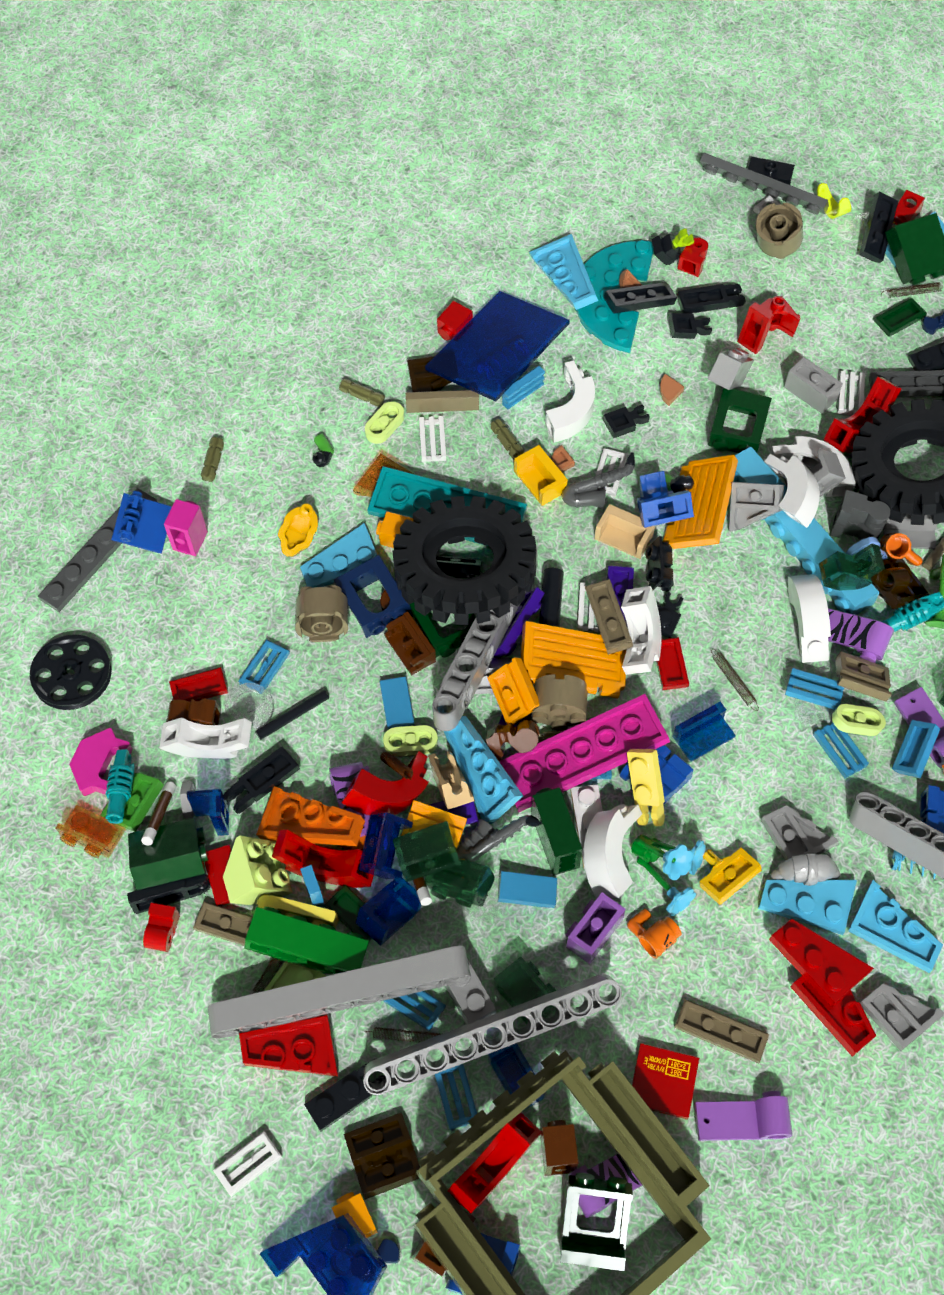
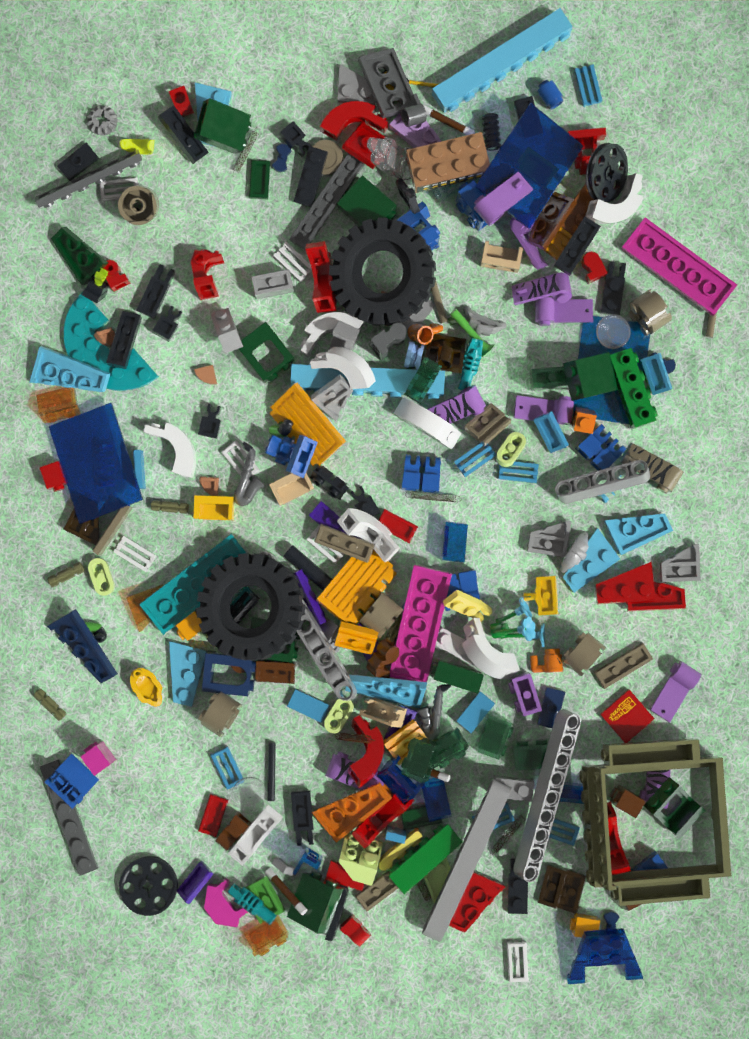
camera: 55 degrees left, 25 degrees up
(106, 714) = (194, 882): none -> dark purple plate
(303, 441) = (80, 639): none -> dark blue wing
(515, 930) = (494, 737): none -> clear green brick
(527, 285) = (58, 405): none -> clear orange bracket
(614, 967) = (551, 705): none -> dark blue plate
(686, 213) = (78, 255): none -> dark green wing
(699, 961) = (584, 653): none -> dark tan brick
(738, 644) = (429, 479): none -> blue legs
(824, 172) = (106, 127): none -> light grey gear

